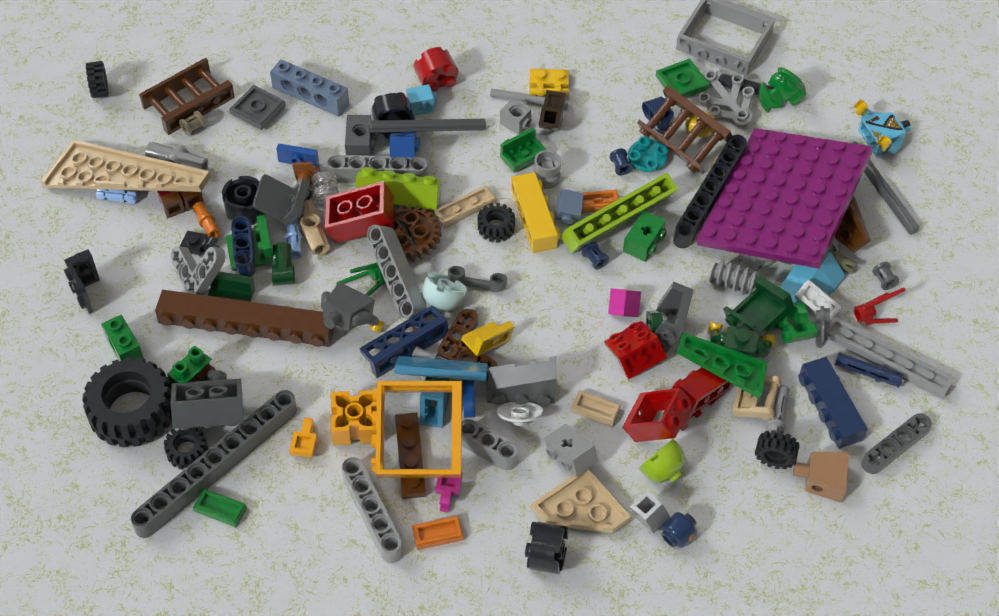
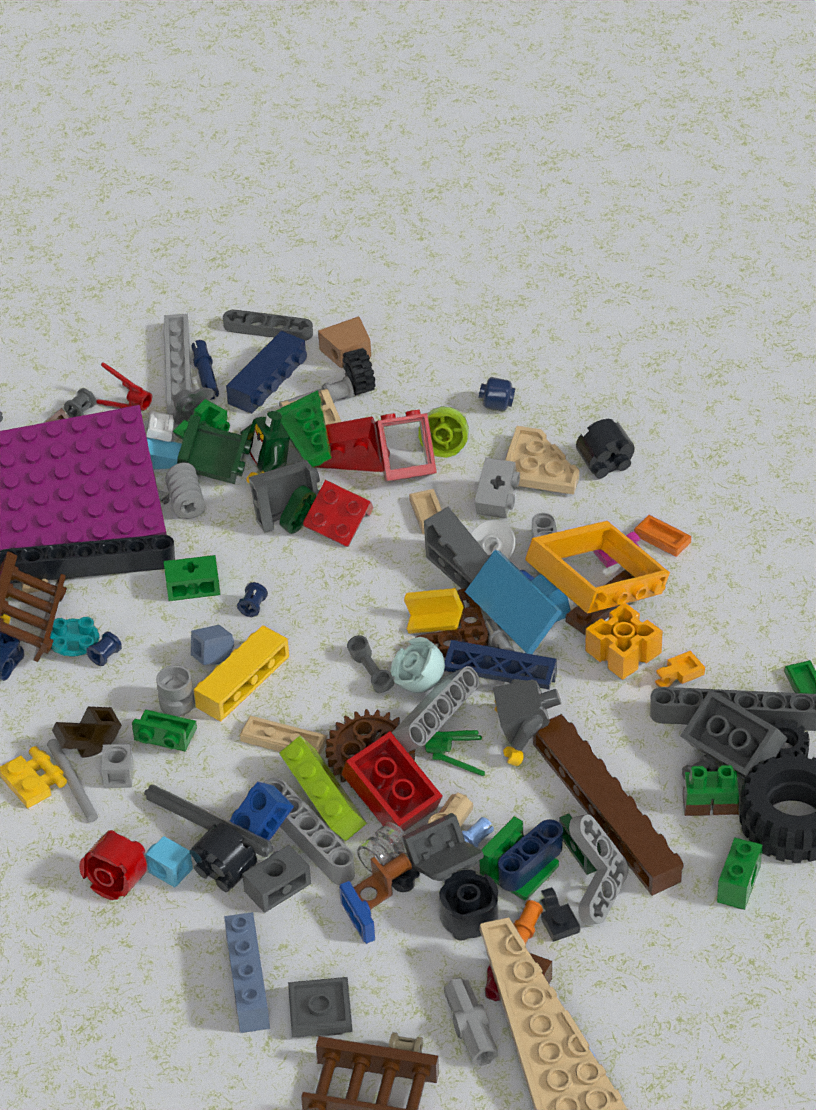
camera: 125 degrees left, 10 degrees down
(81, 273) = (709, 961): black bracket -> none
(282, 268) = (519, 807): dark green piece -> none
(375, 518) = (693, 580): light grey beam -> none
(496, 213) = (283, 684): black tyre -> none
(598, 202) = (169, 645): orange tile -> none
(618, 212) = (183, 601): lime brick -> none
(624, 302) = (290, 548): dark pink panel -> none
(650, 511) = (502, 412): light grey brick -> none

